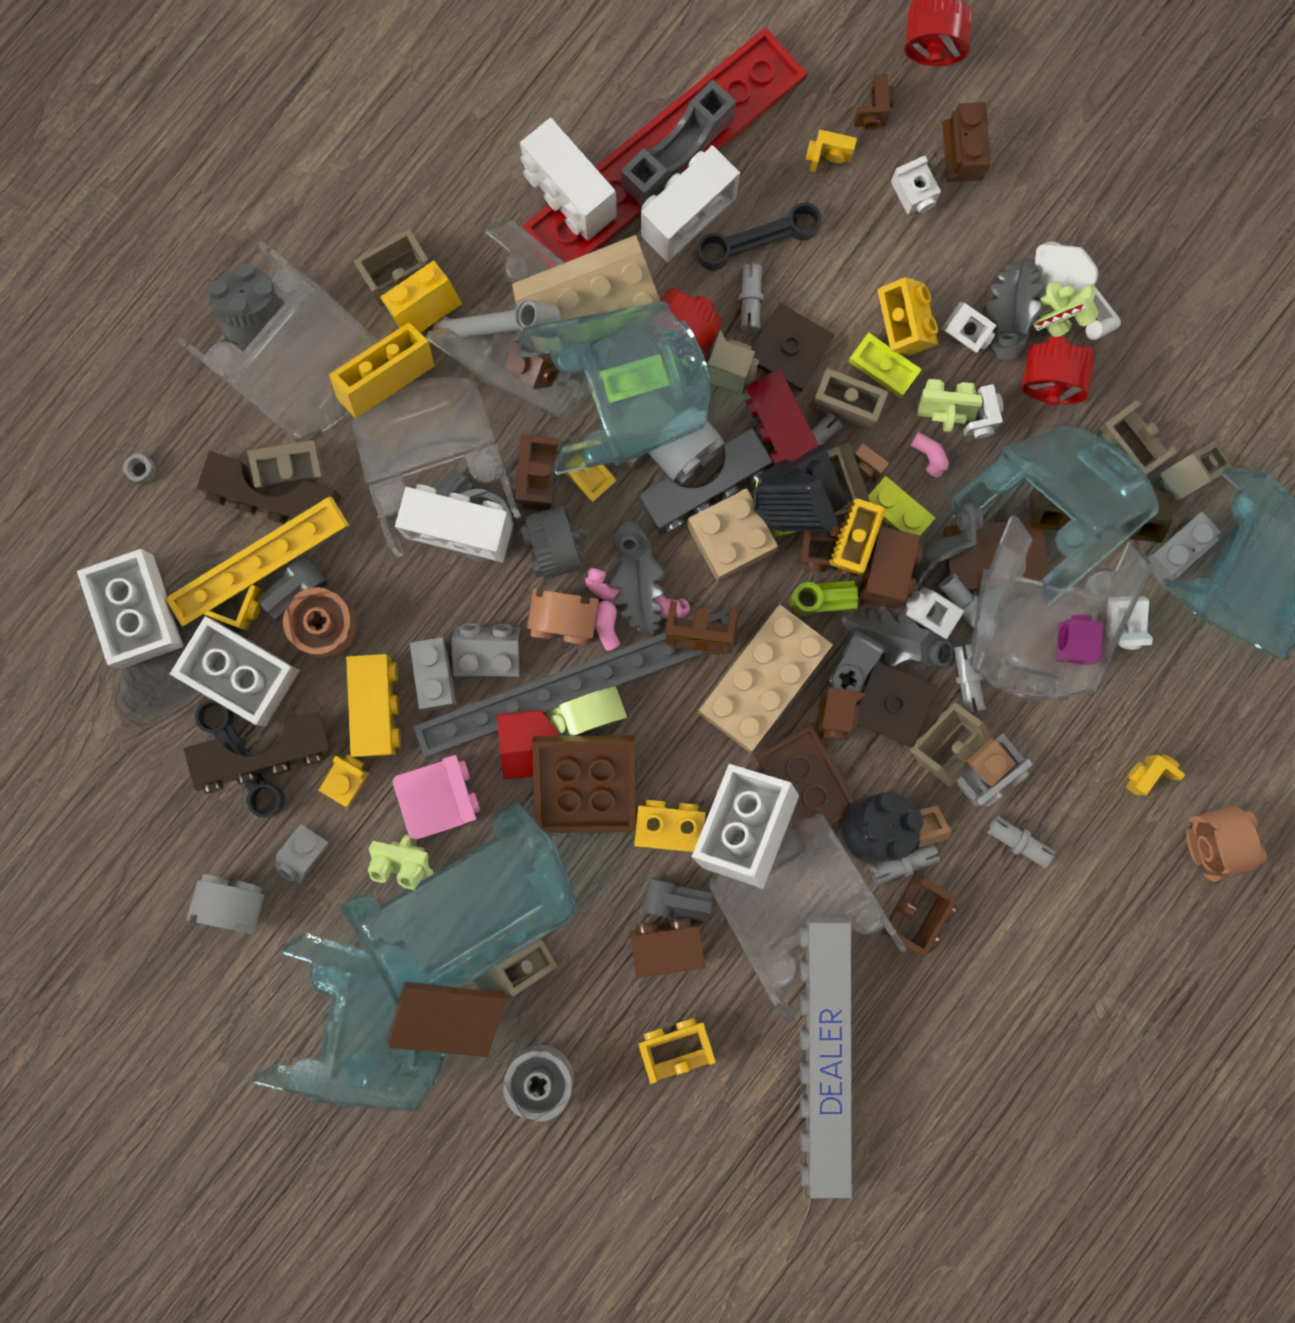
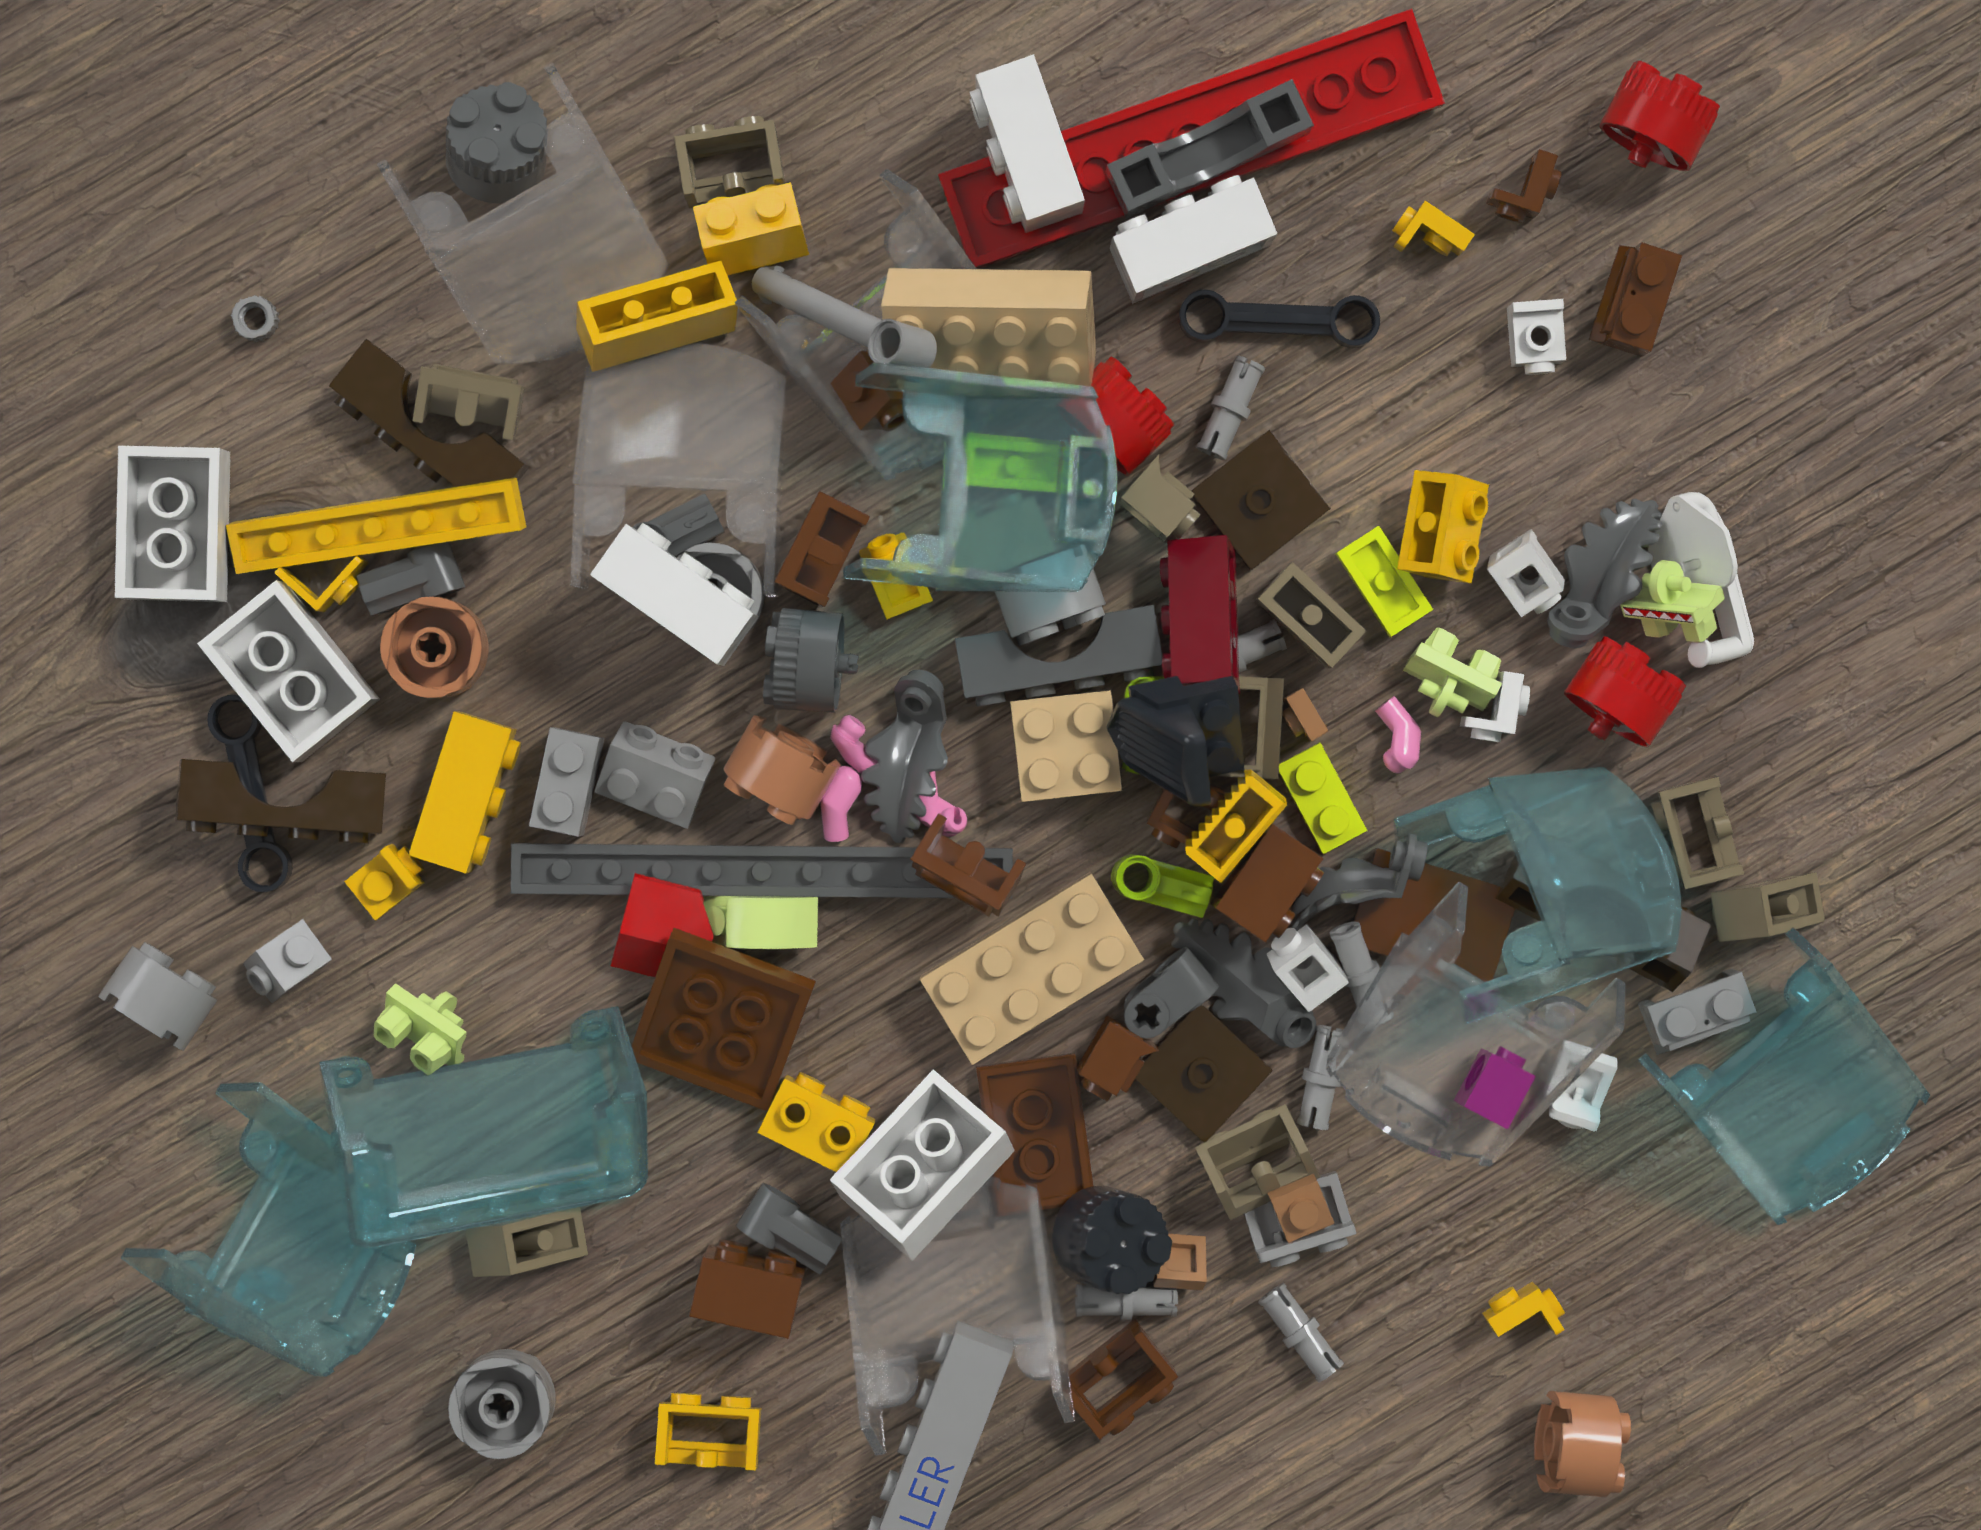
camera: 25 degrees right, 5 degrees up
(435, 798) = (505, 956): bright pink bracket -> none
(446, 1019) = (408, 1271): reddish brown tile -> none

